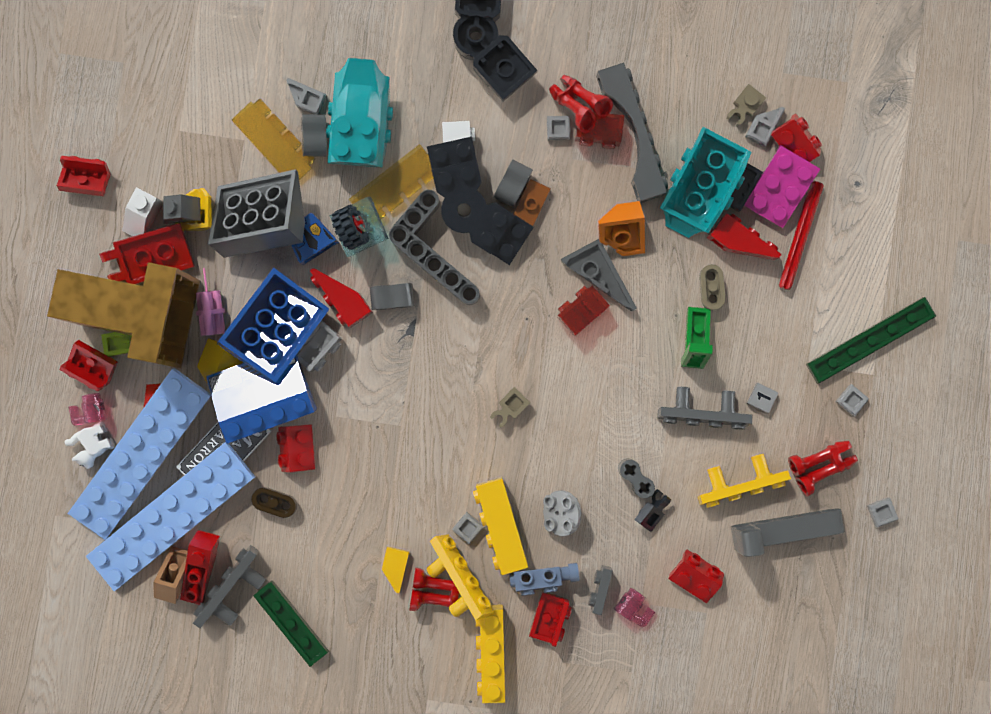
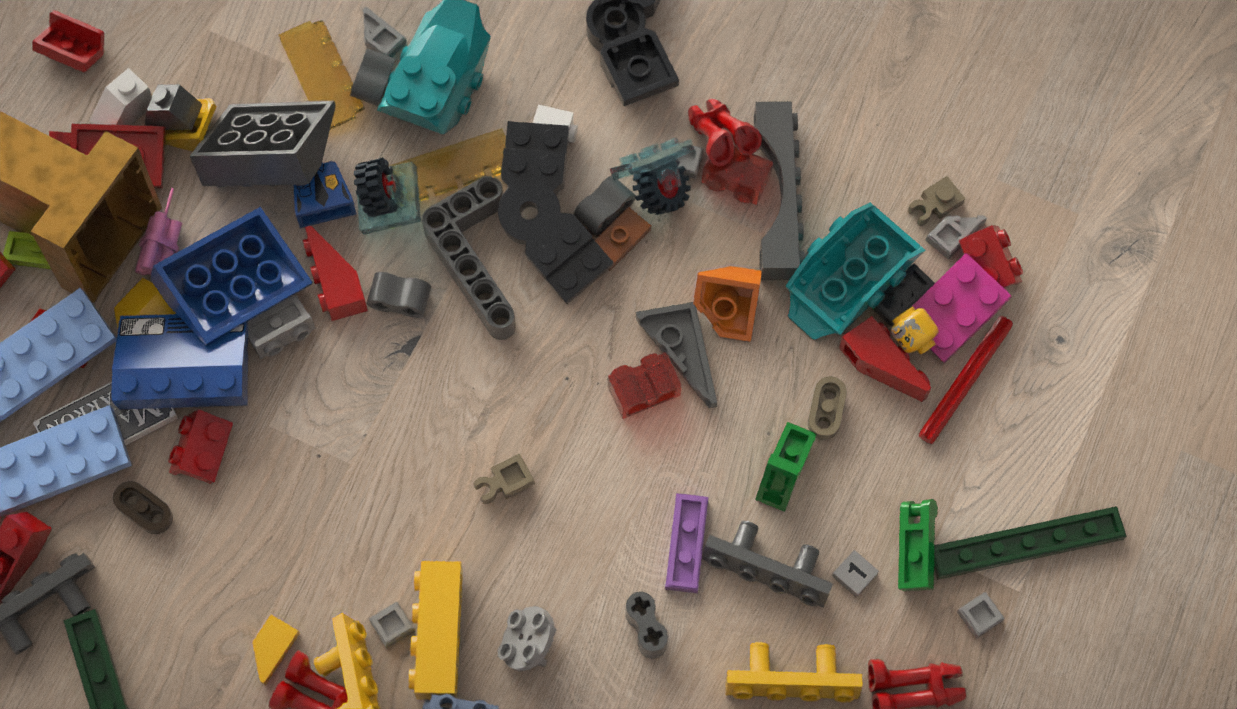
camera: 15 degrees right, 20 degrees down
(545, 150) = (658, 175): none -> plate
(644, 411) = (686, 543): none -> medium lavender tile
(652, 512) = (652, 679): black plate -> none
(759, 216) = (914, 330): none -> yellow head
(799, 367) = (917, 545): none -> green plate

